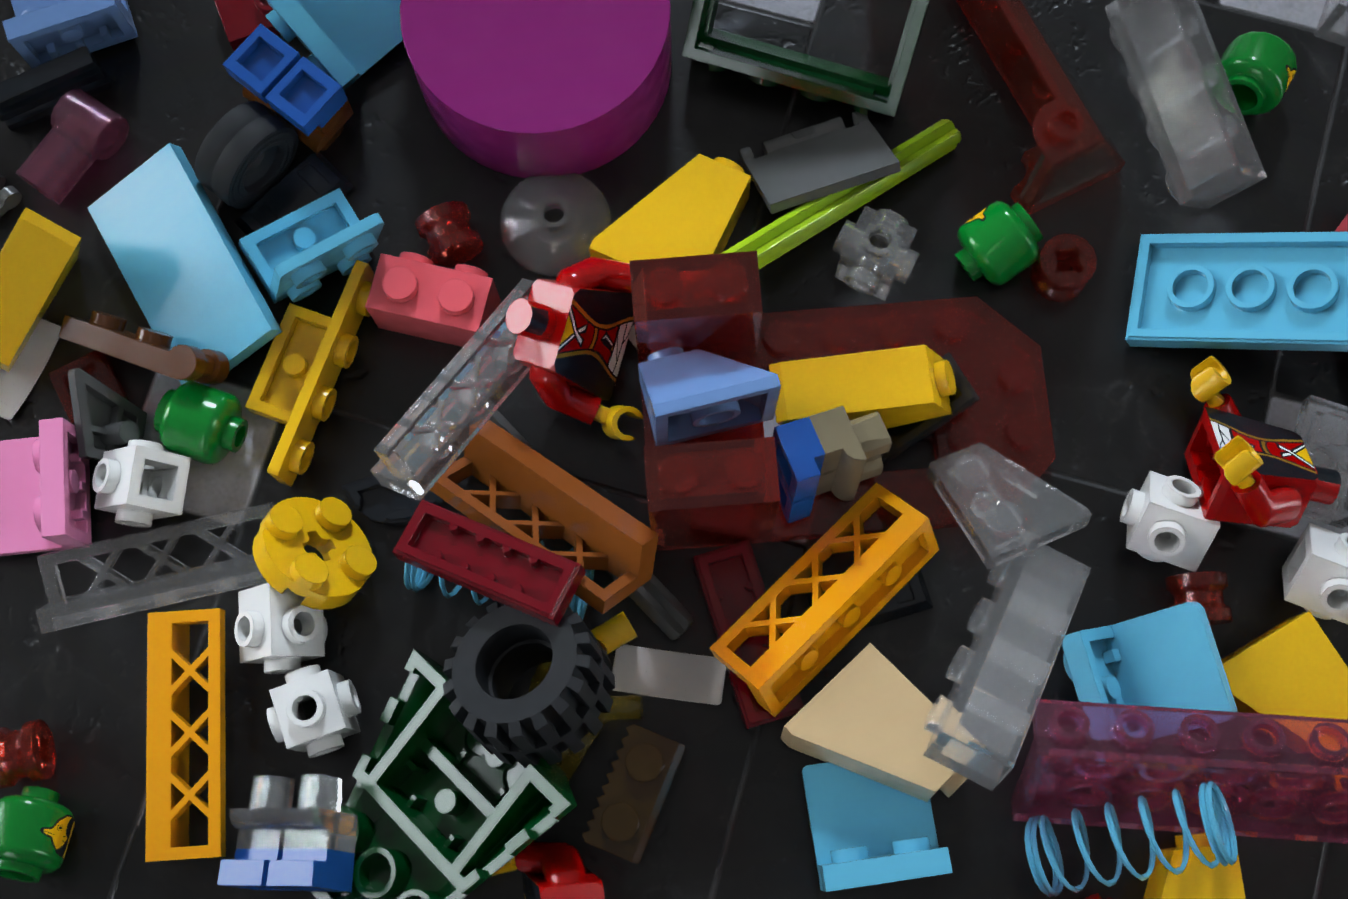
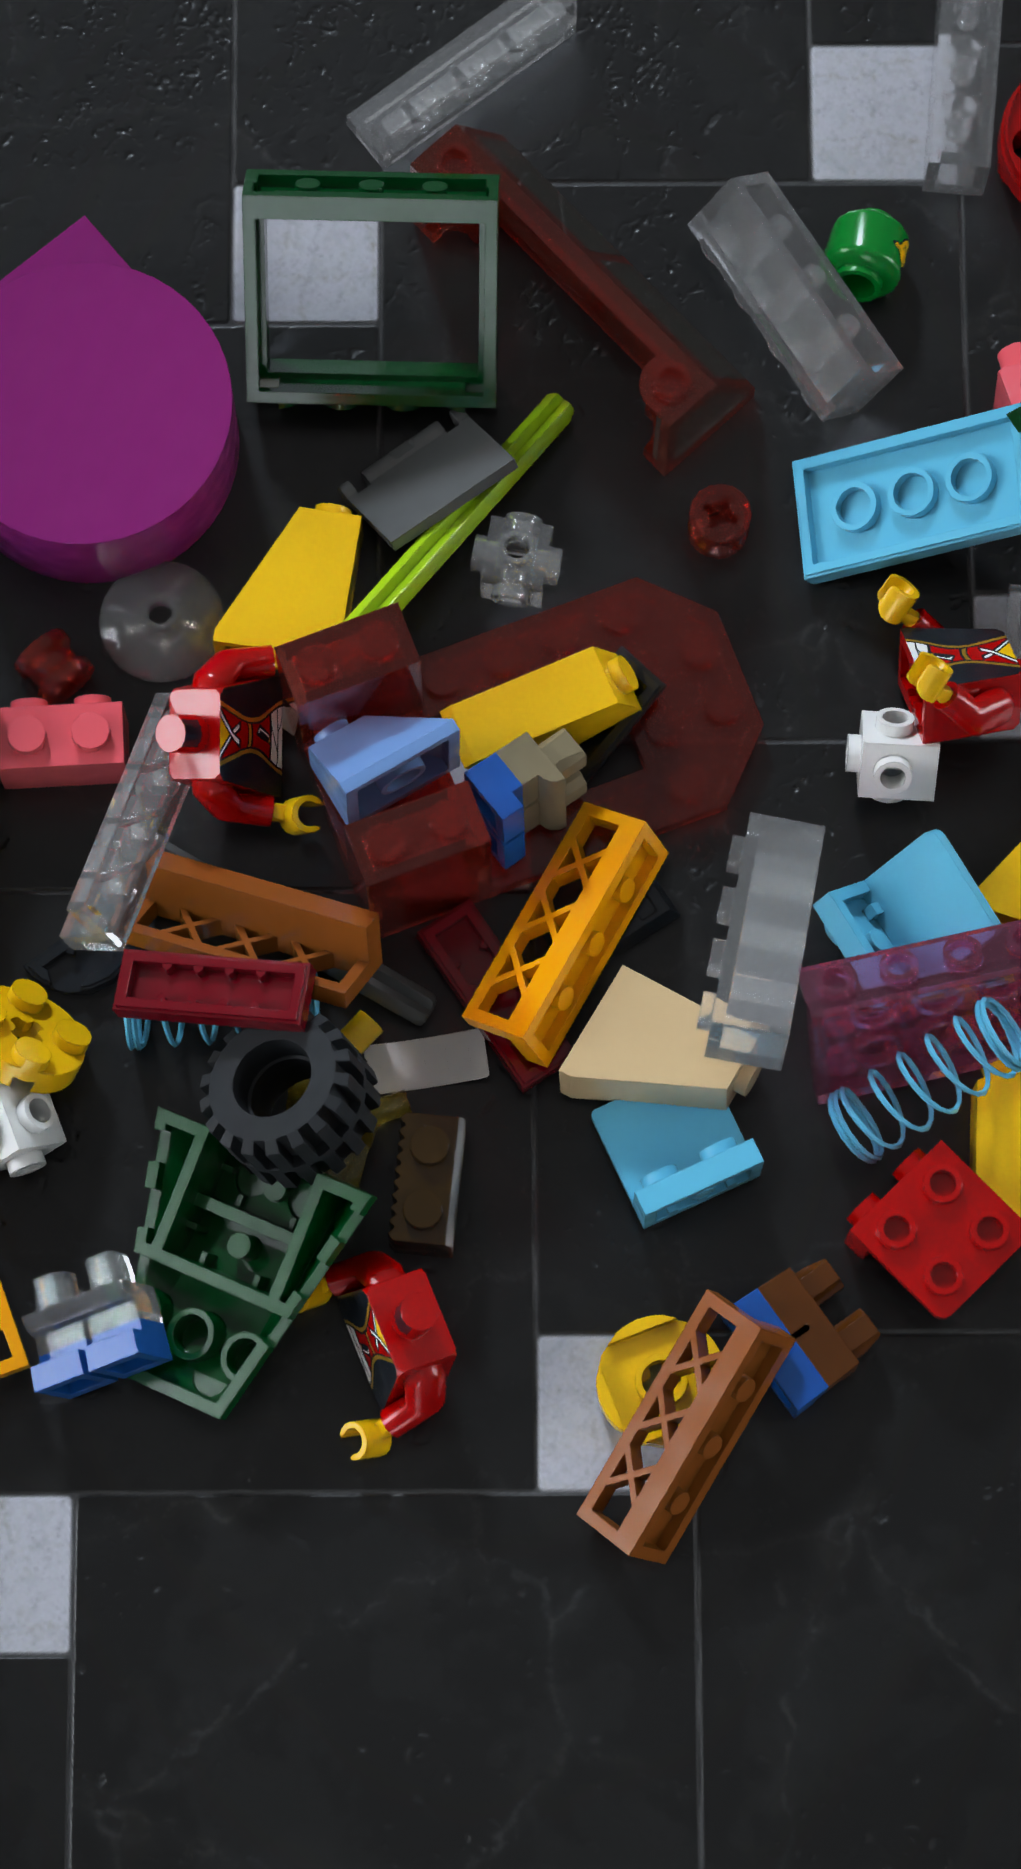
camera: 20 degrees left, 0 degrees up
(334, 717) = (77, 1222): white brick -> none
(998, 243) = (643, 514): green head -> none
(1003, 504) = (718, 787): clear wing -> none
(1205, 589) = (952, 818): clear red wheel -> none

